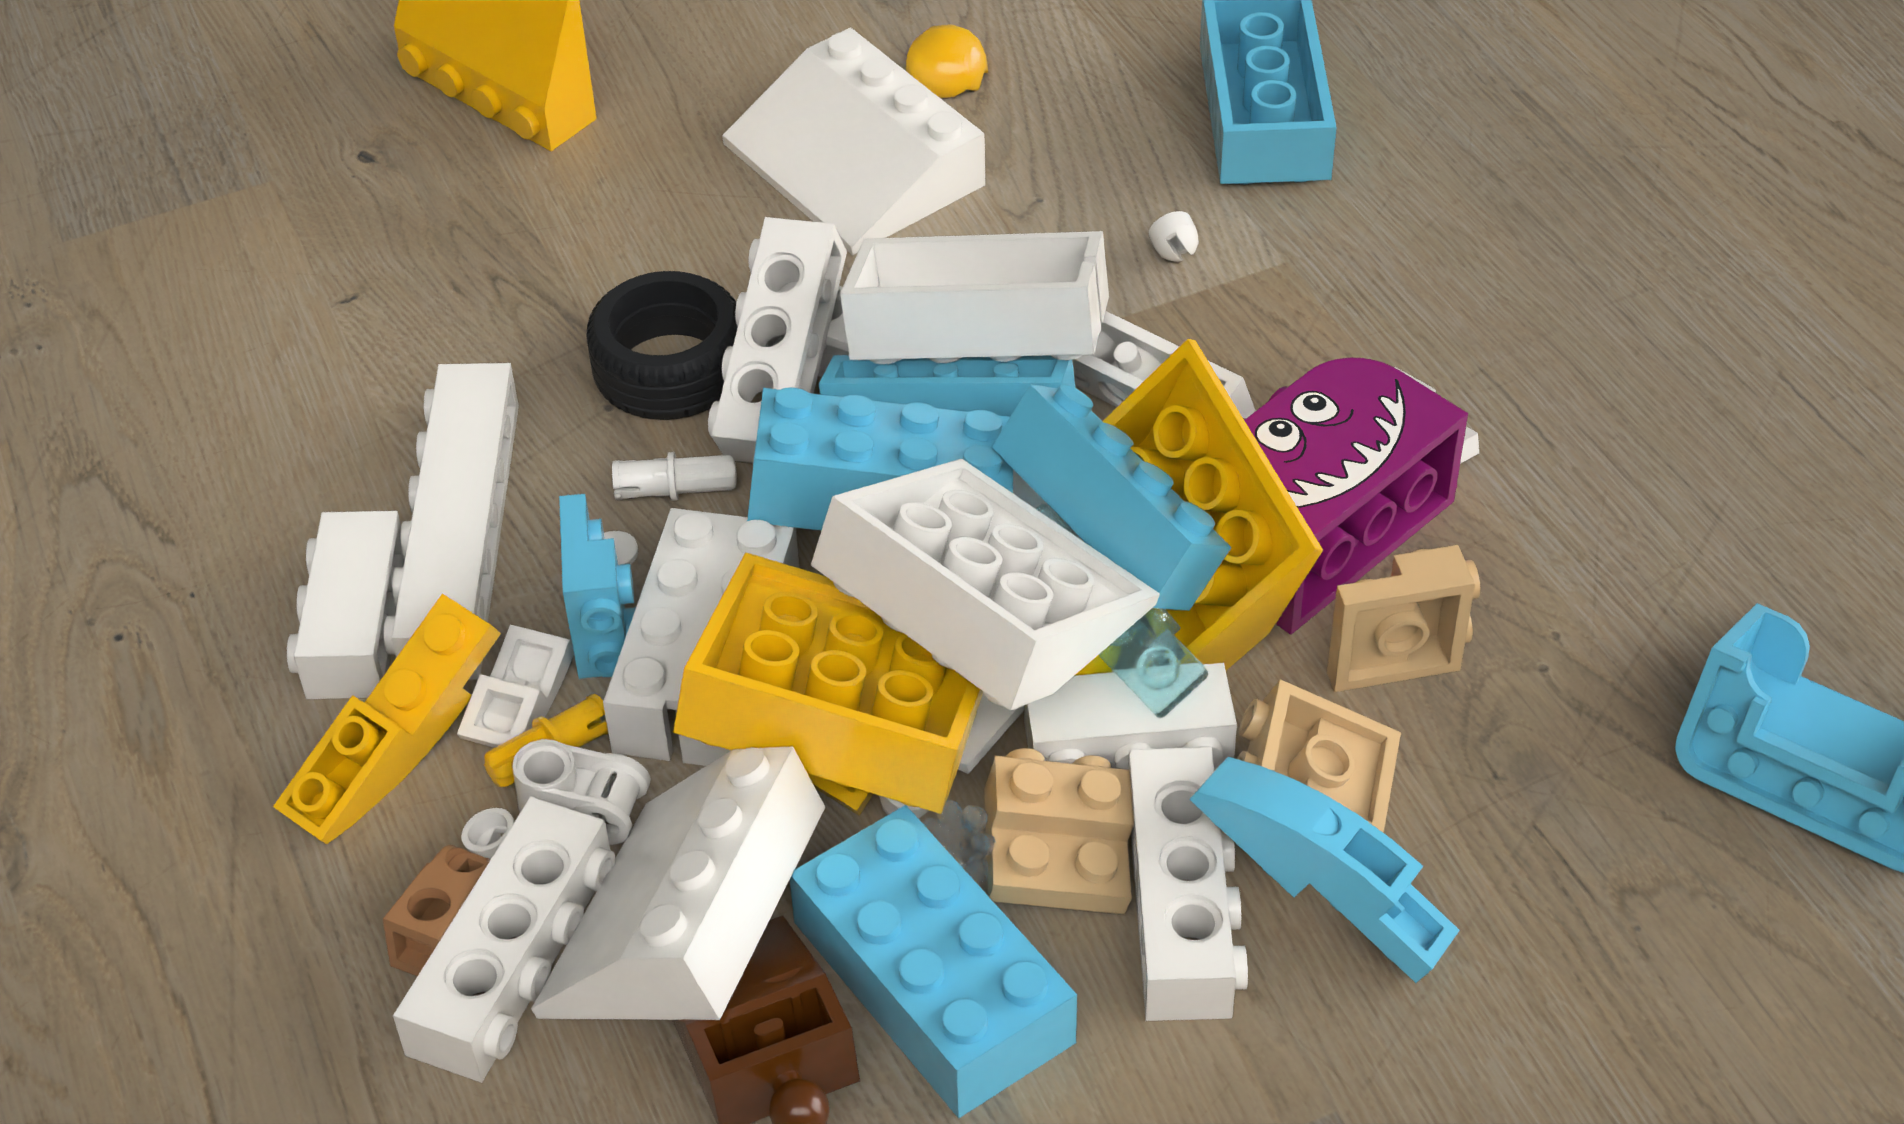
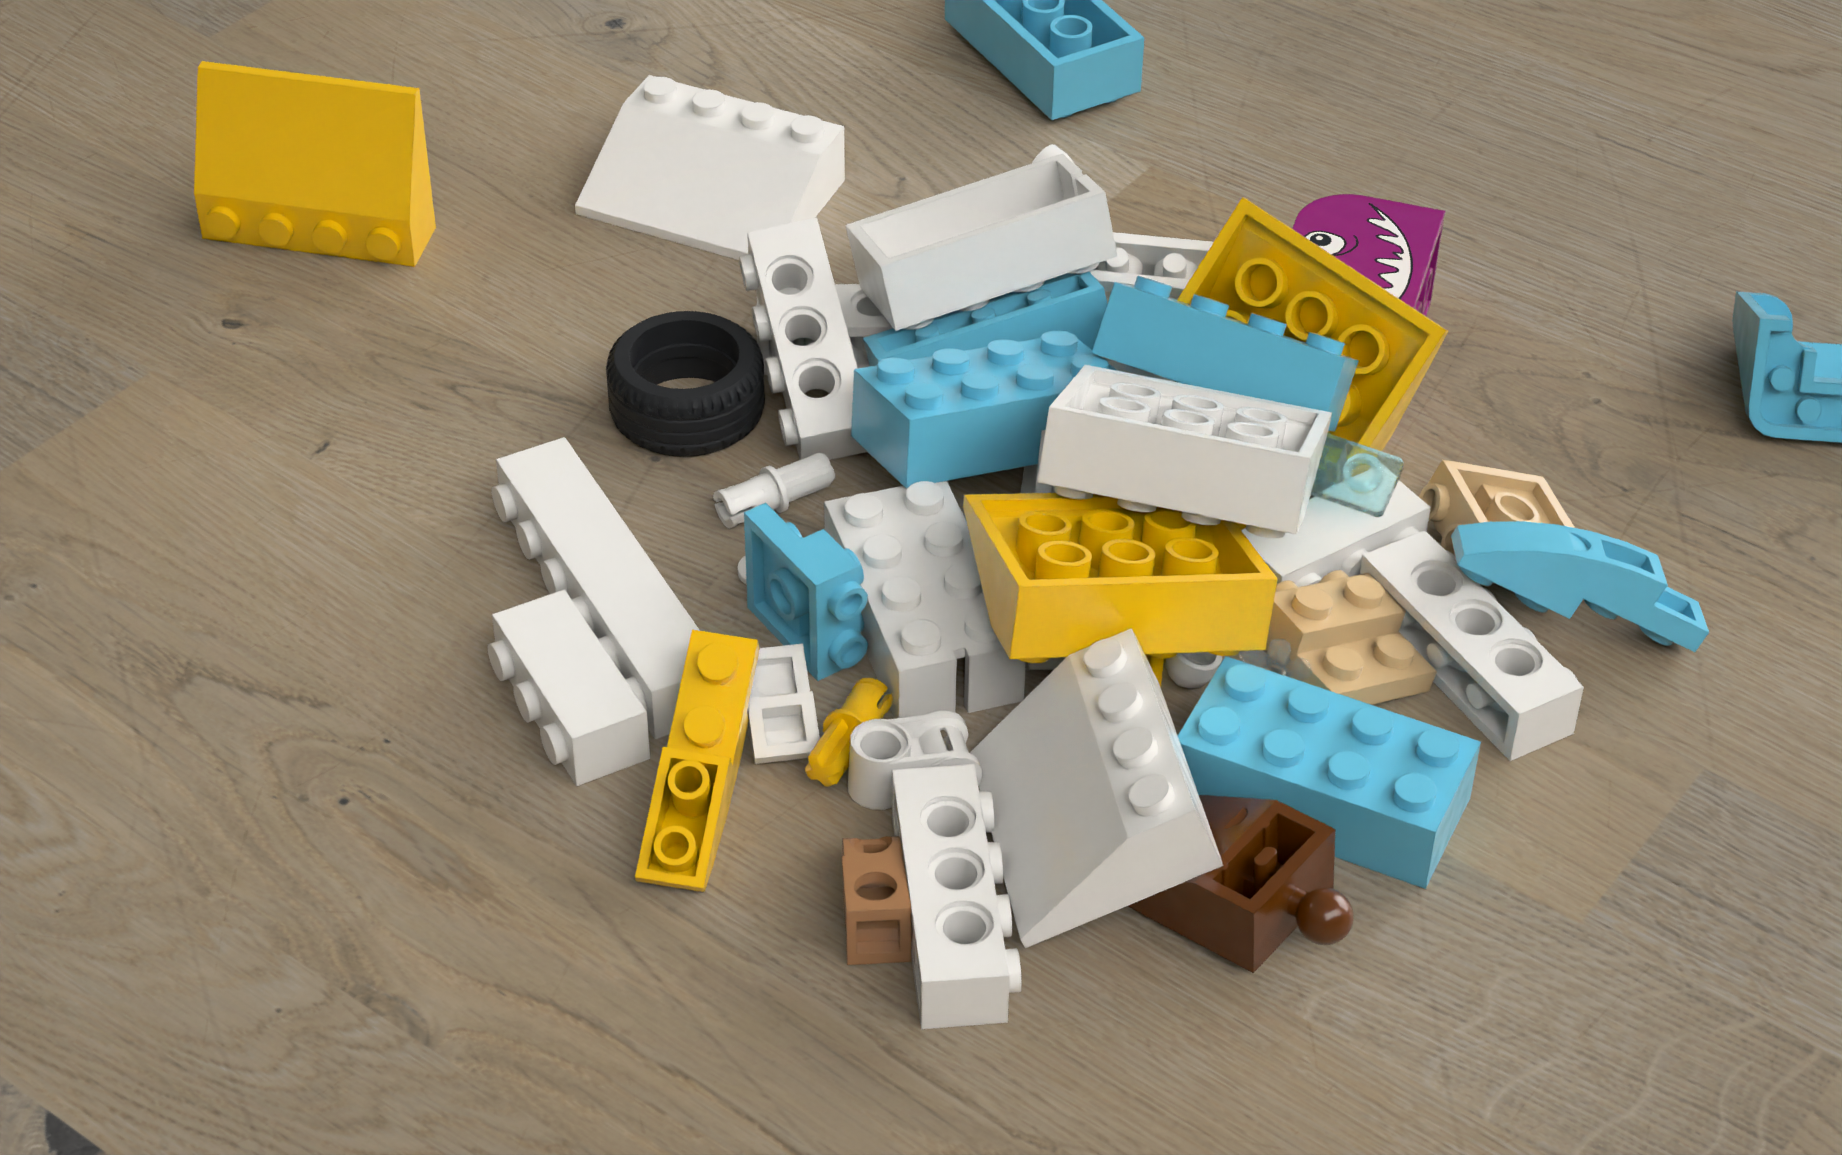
camera: 30 degrees left, 5 degrees down
(484, 830) = (861, 809): white hinge -> none
(947, 60) = (740, 77): yellow hair -> none
(1404, 622) = (1496, 388): tan plate -> none

